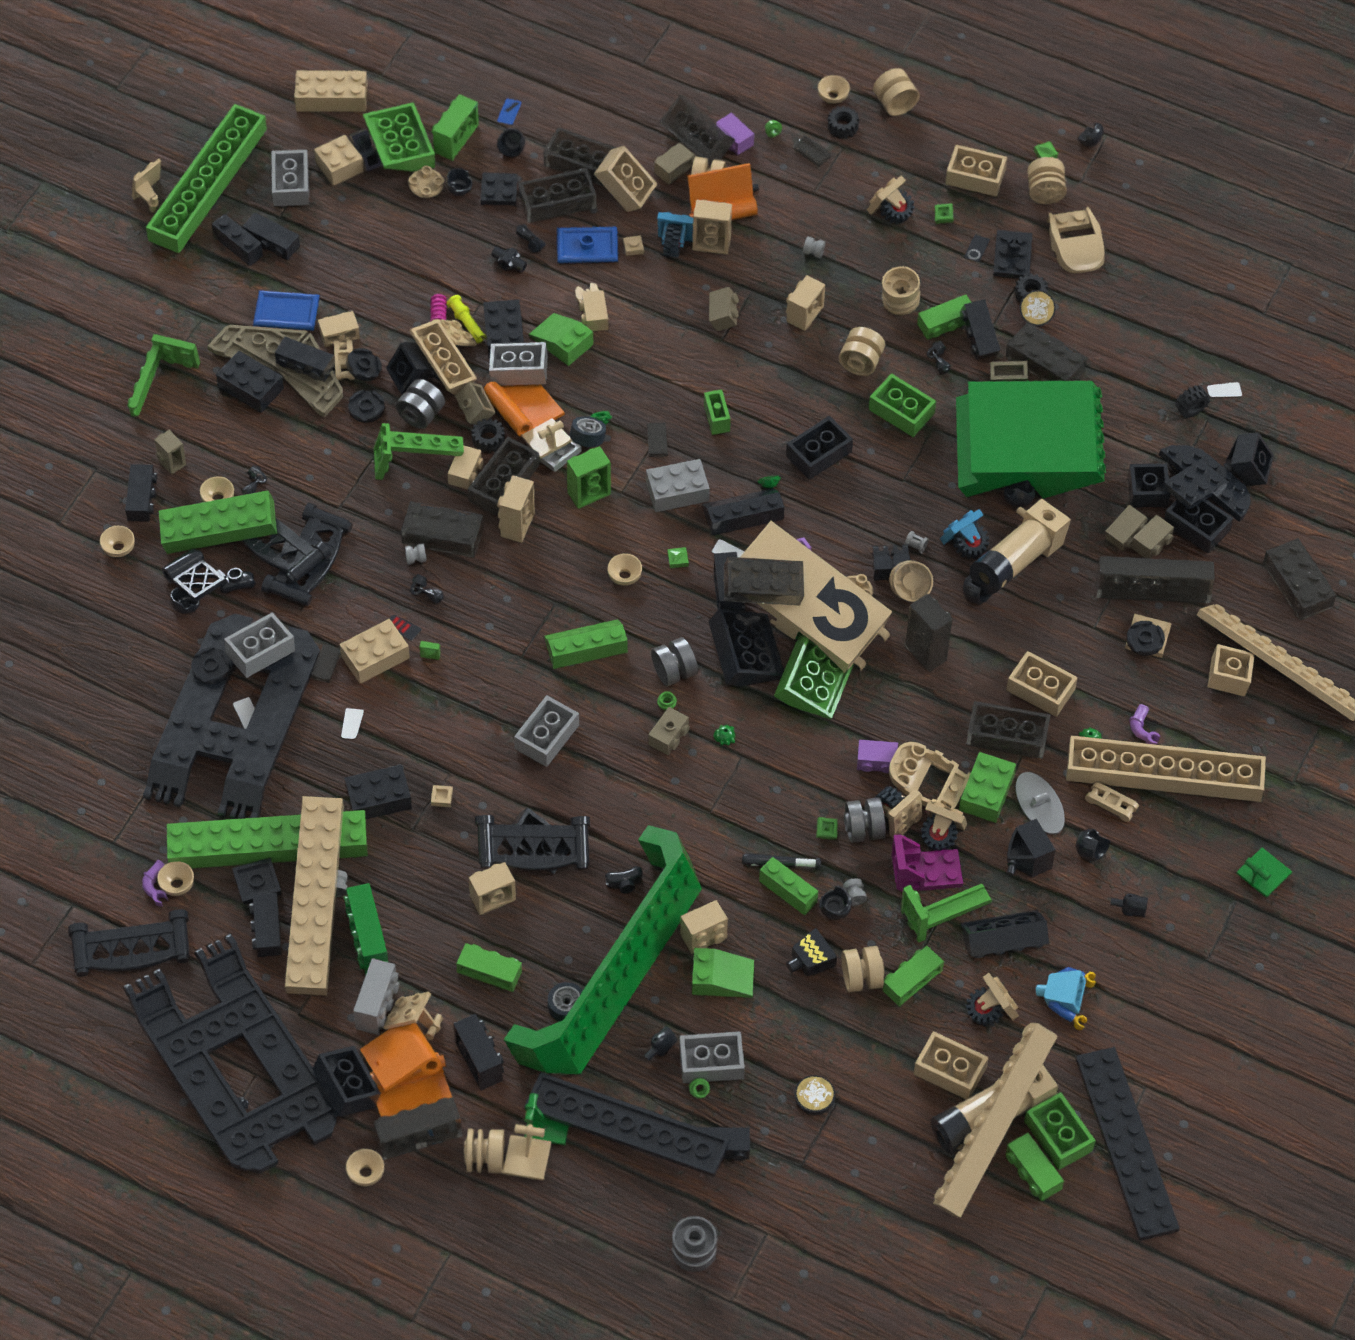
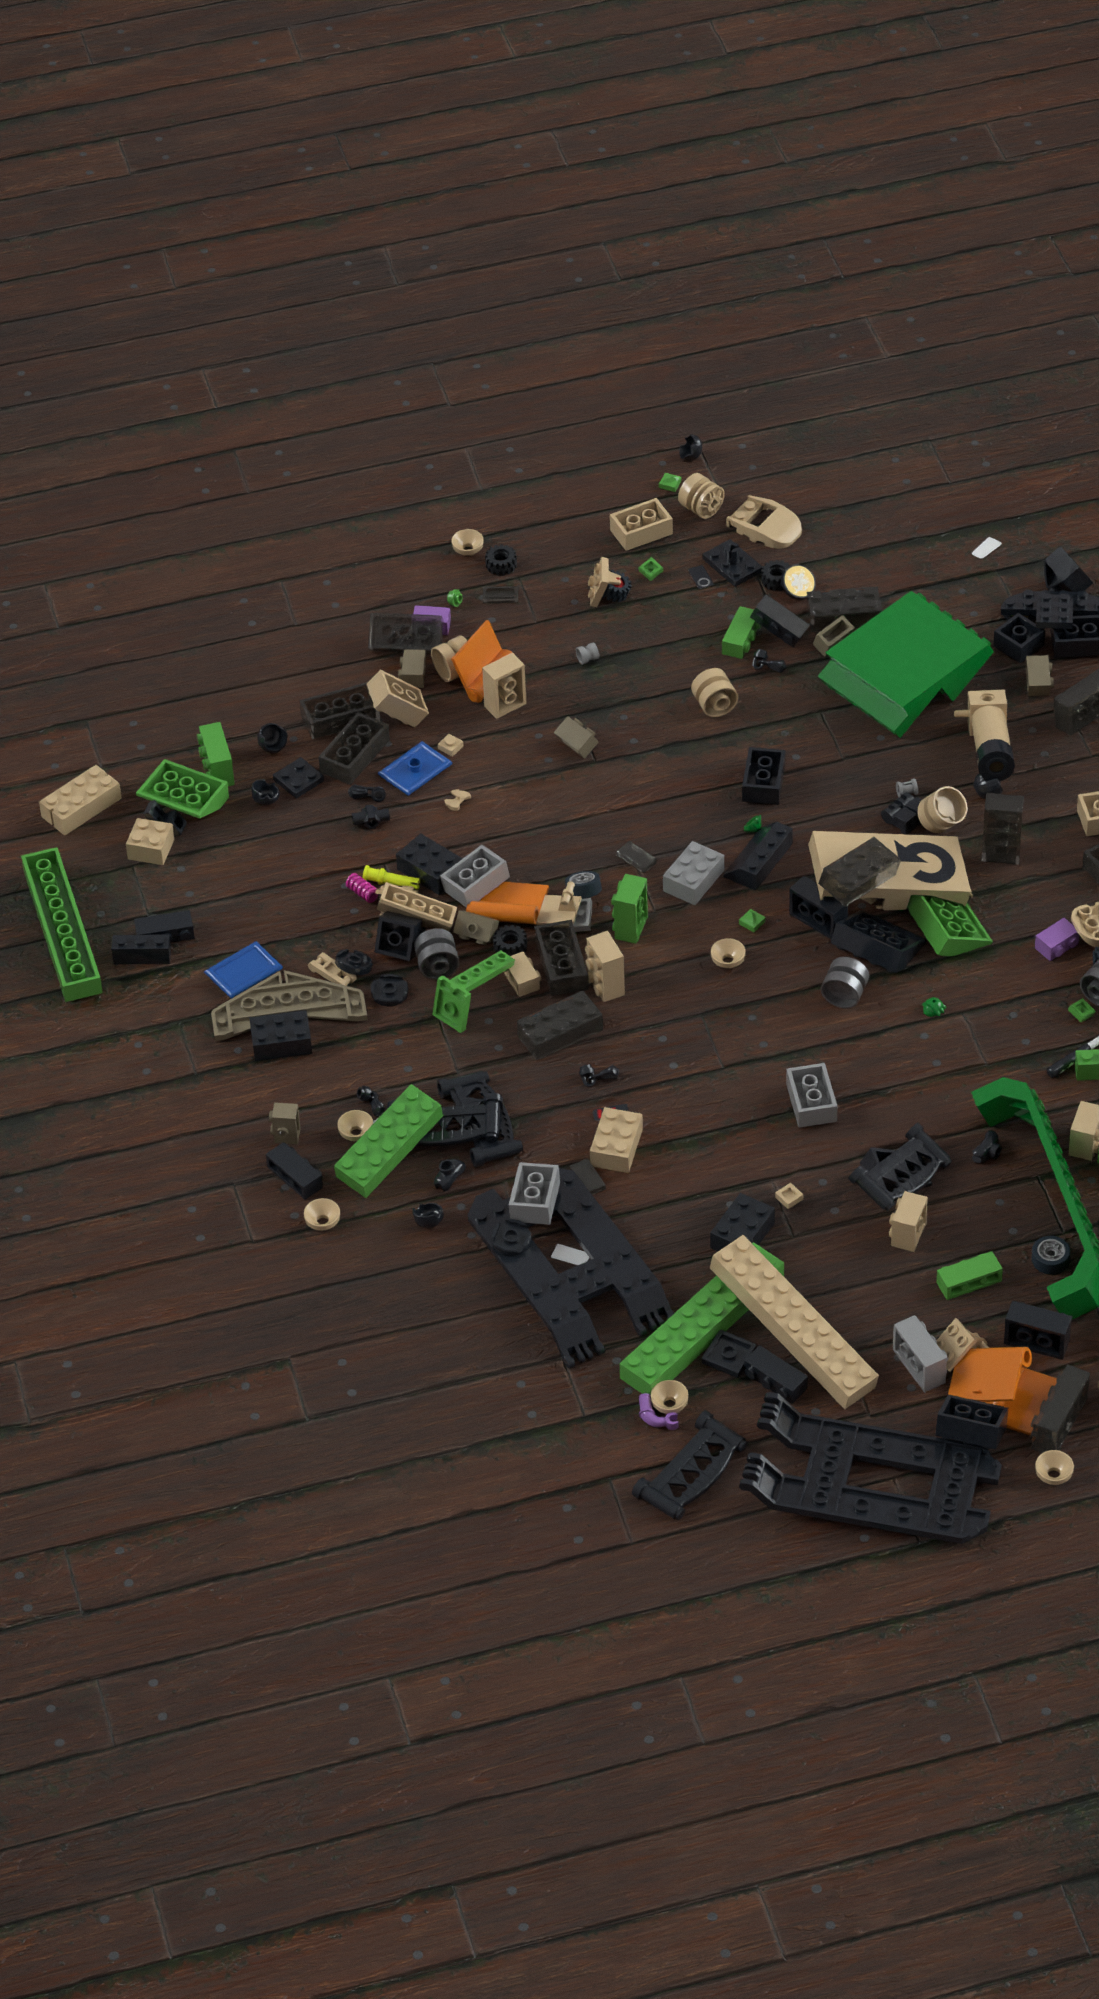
camera: 40 degrees left, 10 degrees down
(142, 184) = (22, 965): tan plate -> none
(162, 349) = (192, 1058): bright green bracket -> none
(186, 567) = (399, 1191): black piece -> none
(290, 178) = (129, 878): light grey brick -> none
(304, 359) = (308, 987): black brick -> none
(338, 328) = (301, 952): tan brick -> none
(351, 723) = (657, 1202): white sticker -> none
(365, 925) = (856, 1315): green piece -> none
(417, 554) = (562, 1054): light grey wheel -> none
(426, 182) = (237, 811): tan dish -> none
(430, 650) = (655, 1109): bright green tile -> none
(509, 111) = (235, 722): blue sticker -> none
(563, 337) = (483, 831): bright green slope -> none
(586, 643) = (761, 1020): bright green slope -> none
(594, 310) = (481, 805): tan brick -> none
(603, 416) = (578, 868): green animal -> none
(666, 696) = (866, 1015): bright green plate -> none
(668, 731) = (894, 1032): dark tan brick -> none
(674, 232) = (477, 711): plate -> none
(717, 412) = (661, 805): bright green brick -> none
(723, 547) = (778, 891): white sticker -> none
(805, 302) = (632, 690): tan brick -> none
(896, 92) = (519, 511): tan wheel -> none
(901, 290) = (690, 635): tan wheel -> none
(902, 405) = (786, 707): bright green brick -> none
(967, 535) = (938, 756): plate -> none
(1019, 494) = (940, 706): black hair -> none
(1152, 537) = (1064, 668): dark tan brick -> none
(1192, 401) = (981, 565): black tyre -> none

